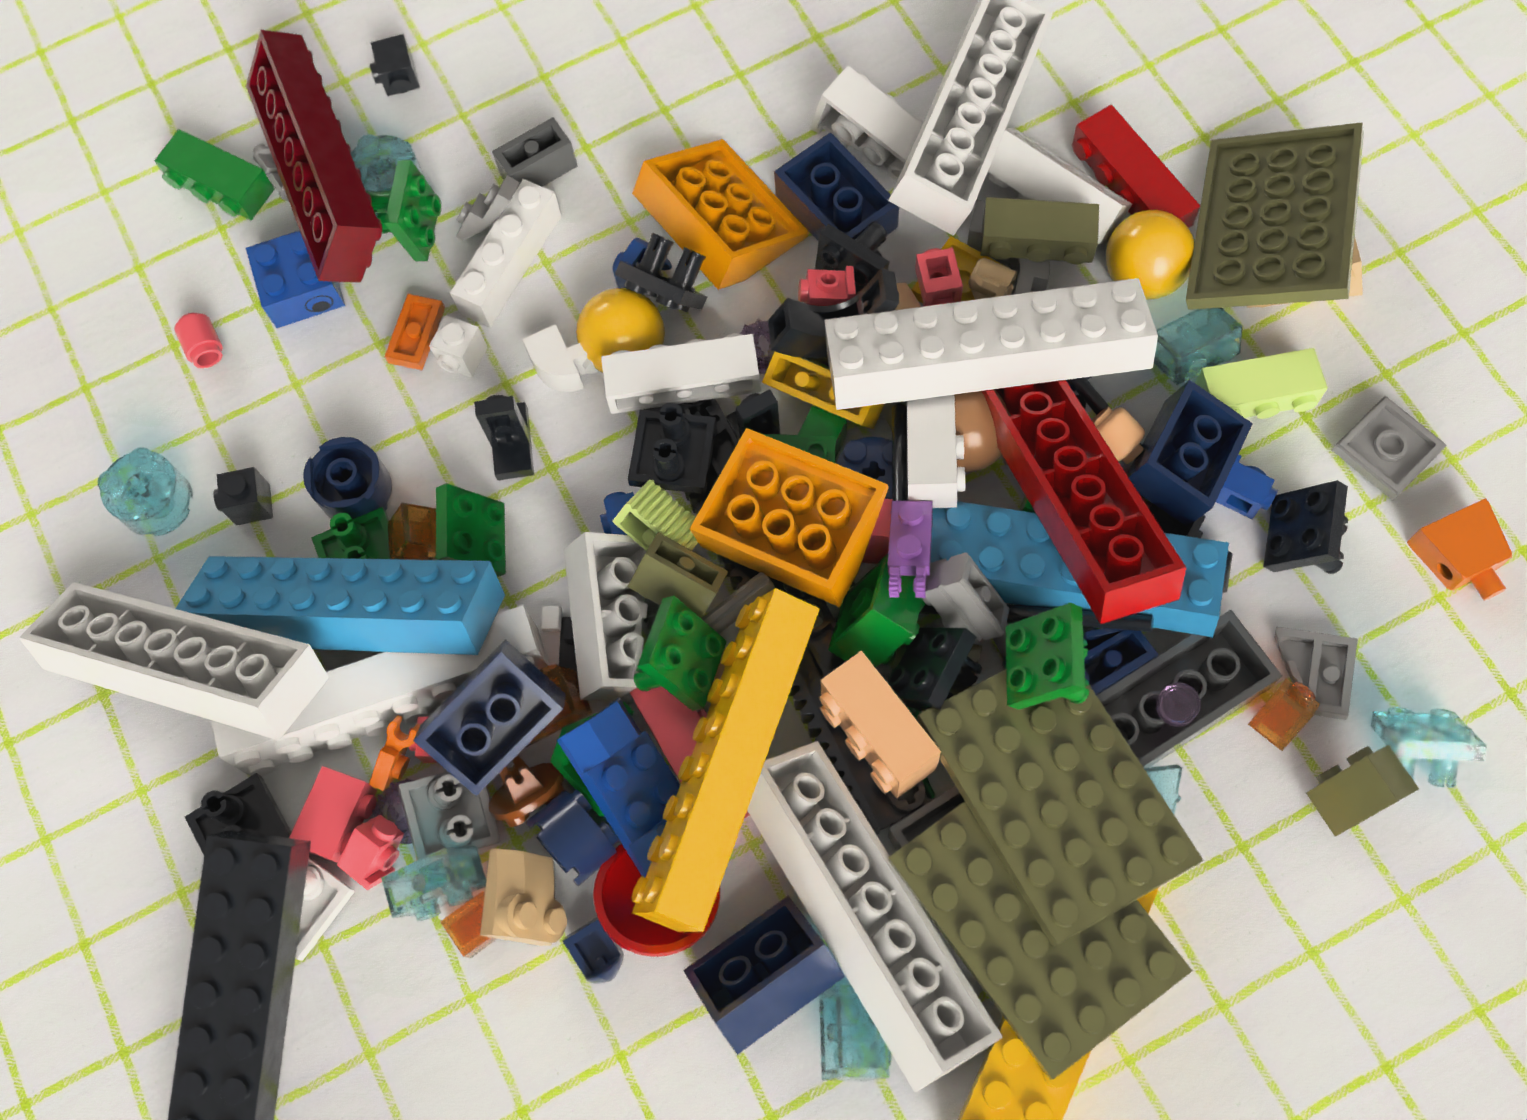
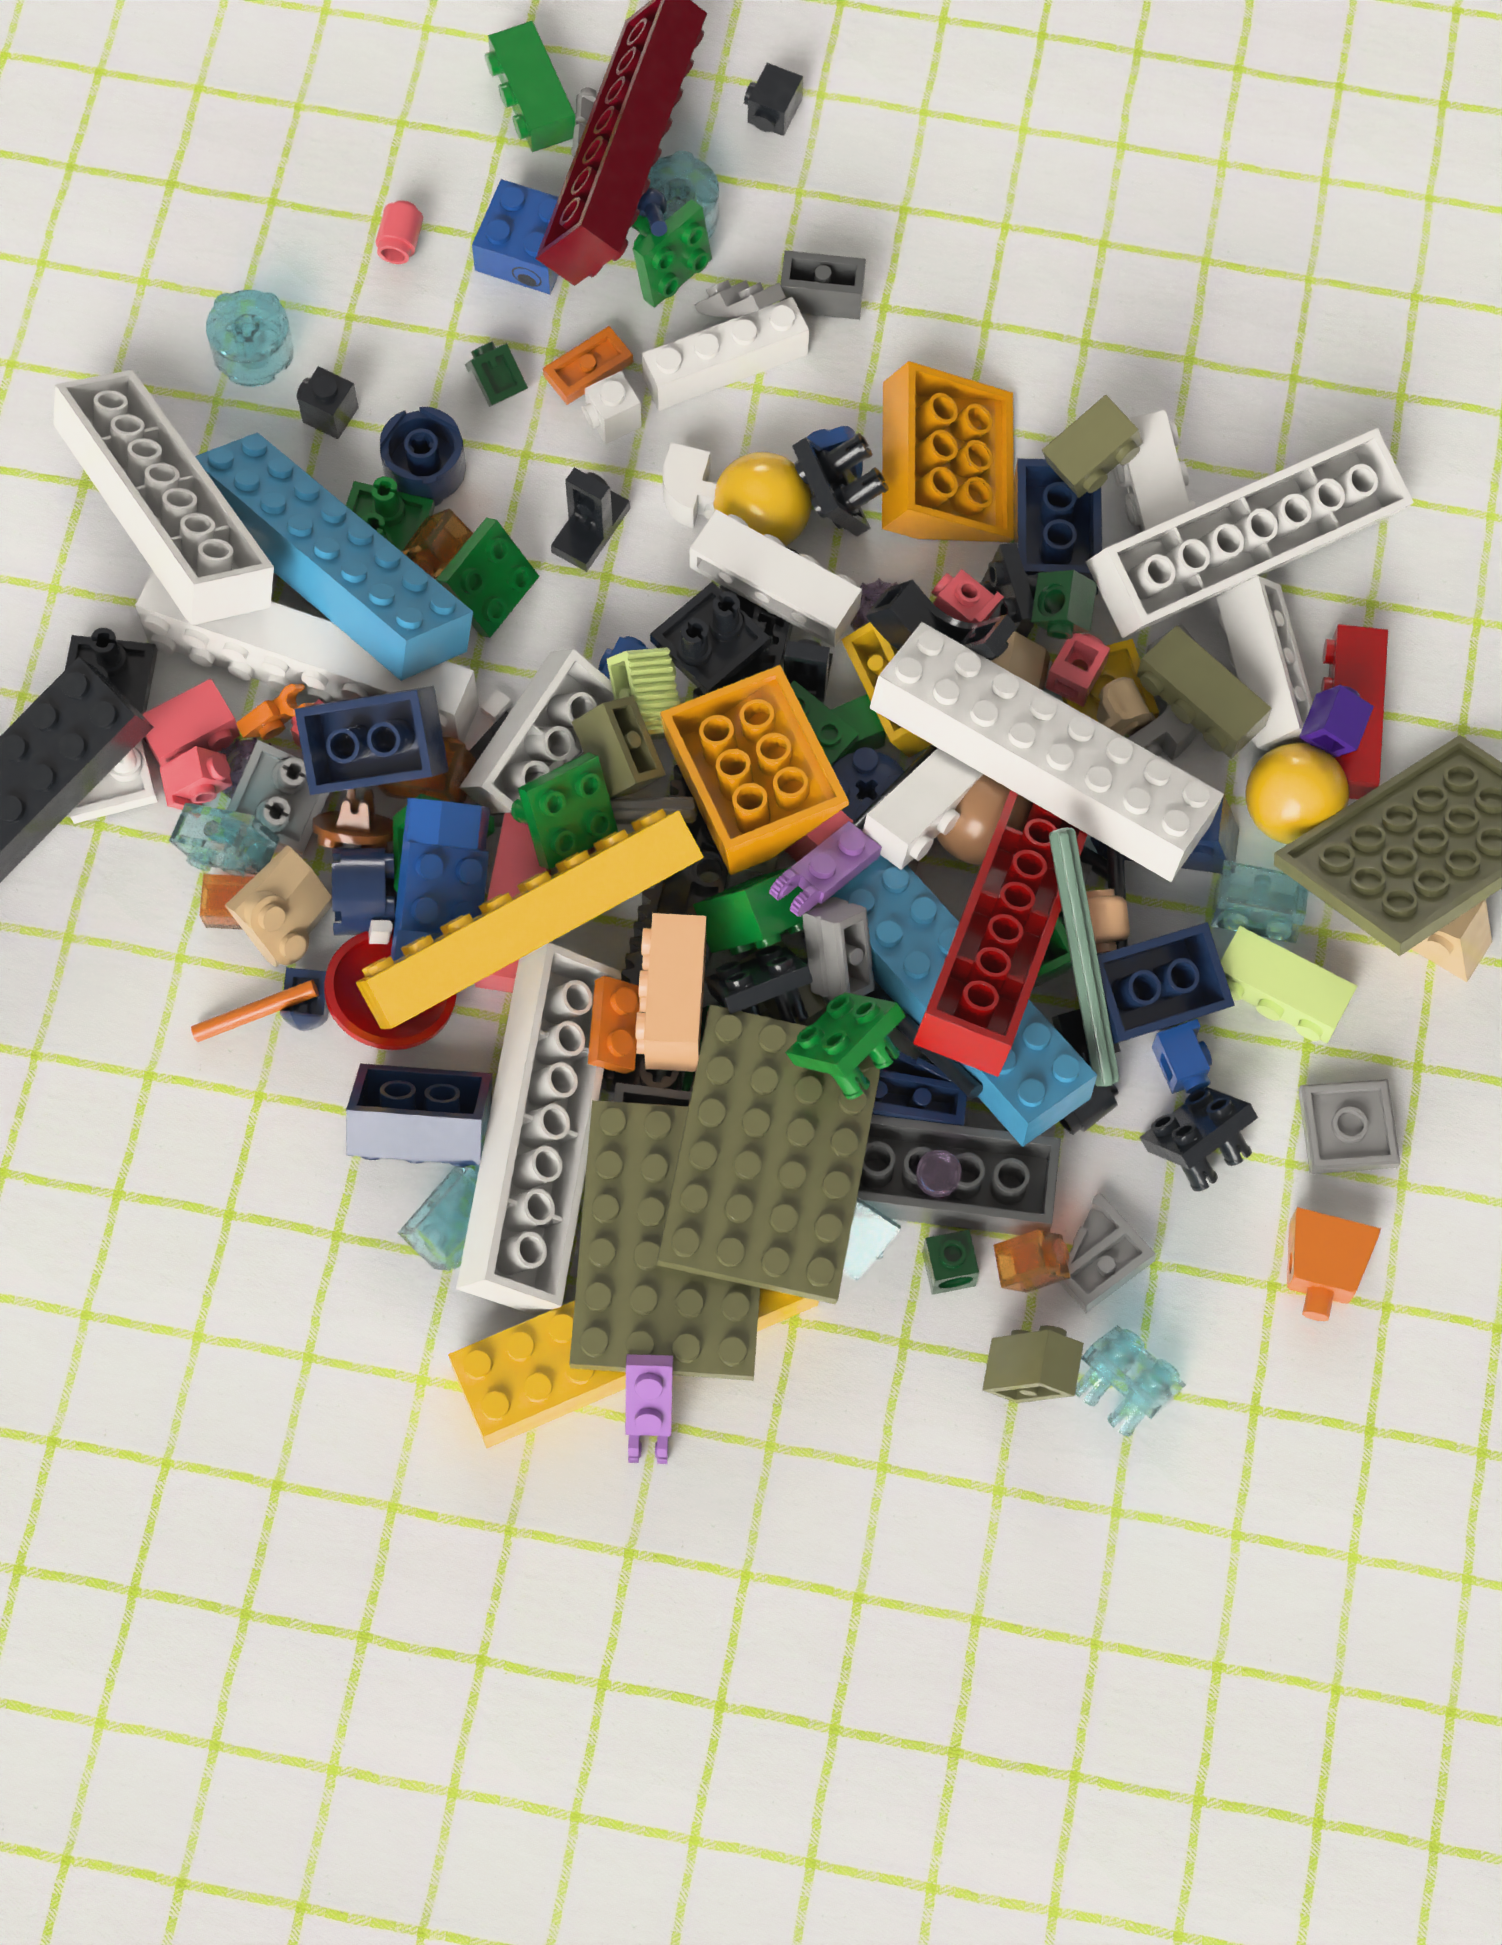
camera: 30 degrees right, 0 degrees up
(352, 384) = (496, 372): none -> dark green bracket
(376, 186) = (653, 206): none -> dark blue bar
(565, 995) = (254, 1010): none -> orange bar
(614, 857) = (380, 931): none -> white piece
(824, 121) = (1093, 447): none -> olive brick
(850, 785) = (614, 1025): none -> orange plate
(886, 234) = (1064, 603): none -> dark green brick
(1129, 1056) = (648, 1403): none -> hinge
(1140, 460) = (1084, 955): none -> sand green axle
(1144, 182) = (1336, 720): none -> dark purple brick
(1229, 761) = (950, 1262): none -> dark green brick

